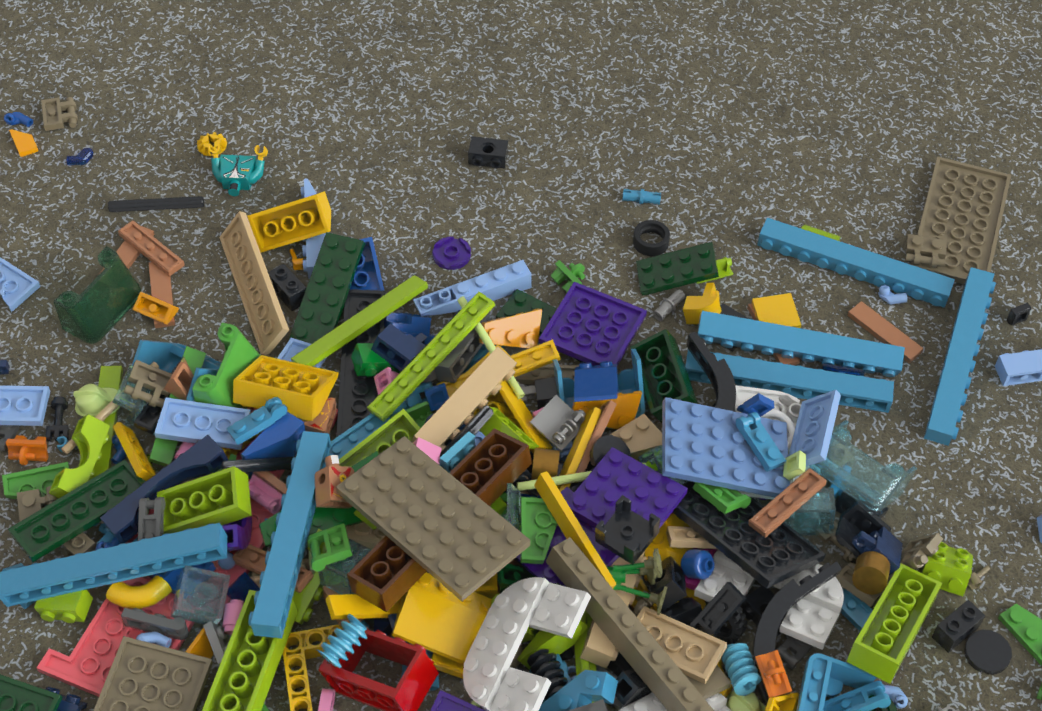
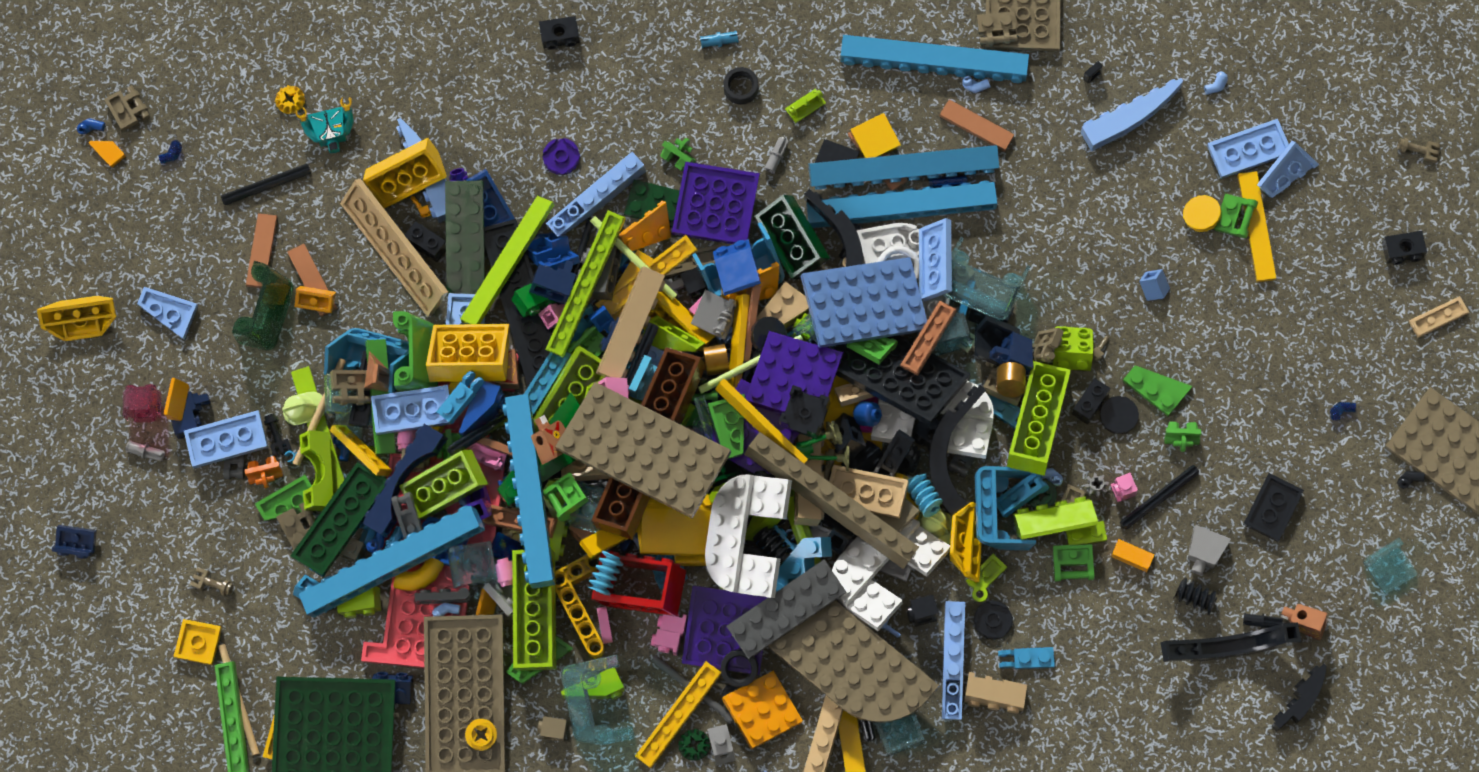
camera: 10 degrees left, 20 degrees up
(151, 248) = (283, 236): nougat tile -> none
(677, 268) = (774, 116): dark green plate -> none
(696, 304) = (809, 152): yellow brick -> none
(757, 404) = (881, 252): blue plate -> none
(760, 441) = (893, 288): dark azure plate -> none
(773, 674) = (951, 494): orange hips -> none
(794, 465) = (926, 301): yellowish green plate -> none
(821, 232) = (896, 34): lime tile -> none
(959, 357) = (1047, 134): dark azure brick -> none

